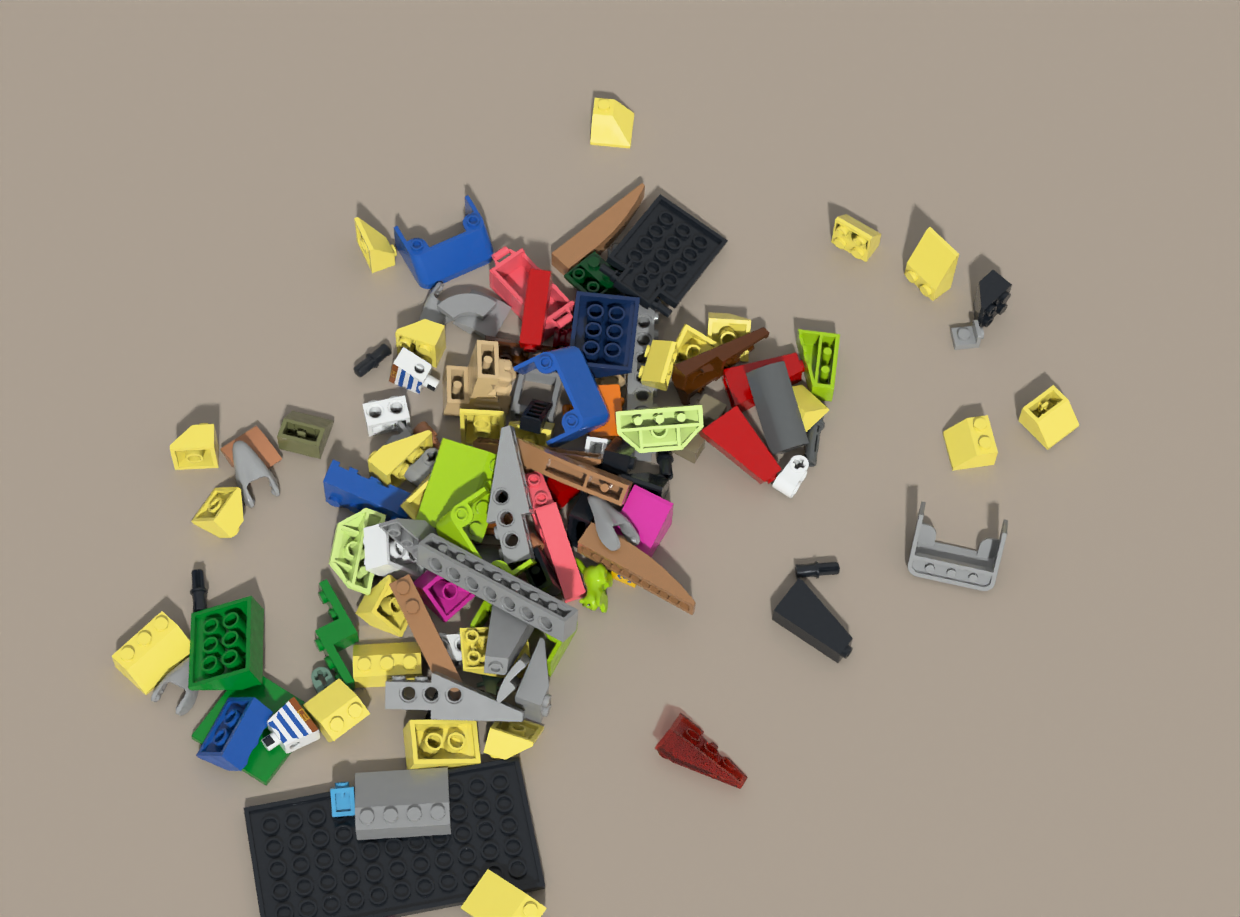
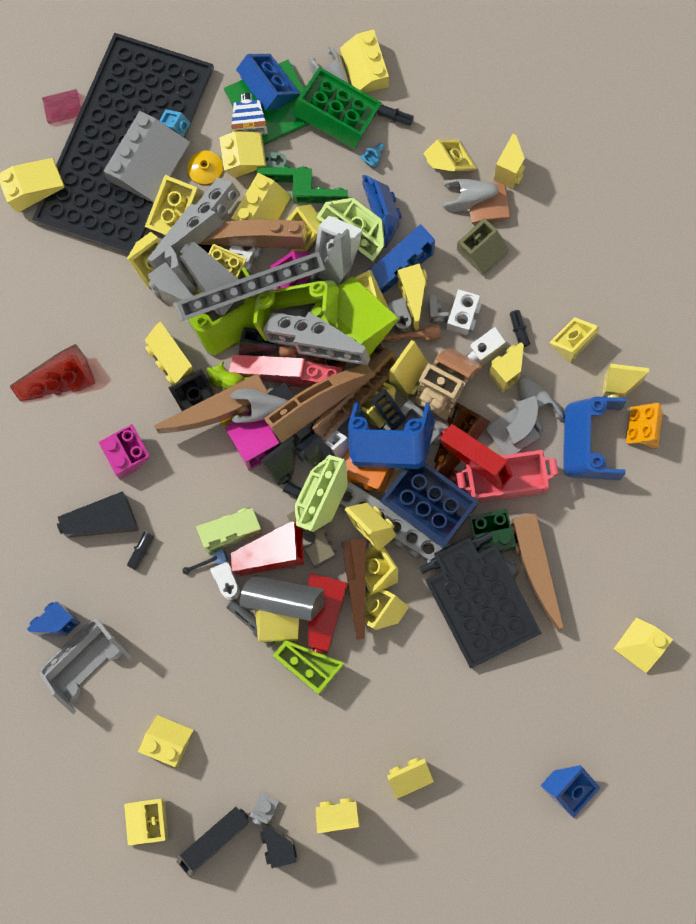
camera: 130 degrees right, 15 degrees up
(260, 589) = (373, 155): none -> dark azure piece
(313, 548) = (382, 204): none -> blue wedge
(353, 307) = (574, 338): none -> light yellow slope
(373, 760) = (207, 174): none -> yellow dish
(405, 210) = (645, 425): none -> light orange bracket
(448, 377) = (459, 362): none -> nougat slope
(608, 650) = (168, 354): none -> light yellow slope
(629, 613) = (191, 390): none -> black slope
(732, 636) = (124, 451): none -> dark pink slope
(744, 499) = (229, 530): none -> yellowish green wedge
(773, 497) = (219, 557): none -> hinge
(775, 120) = (570, 788): none -> blue slope
(940, 595) = (54, 621): none -> blue slope
(1025, 356) = (212, 841): none -> black slope

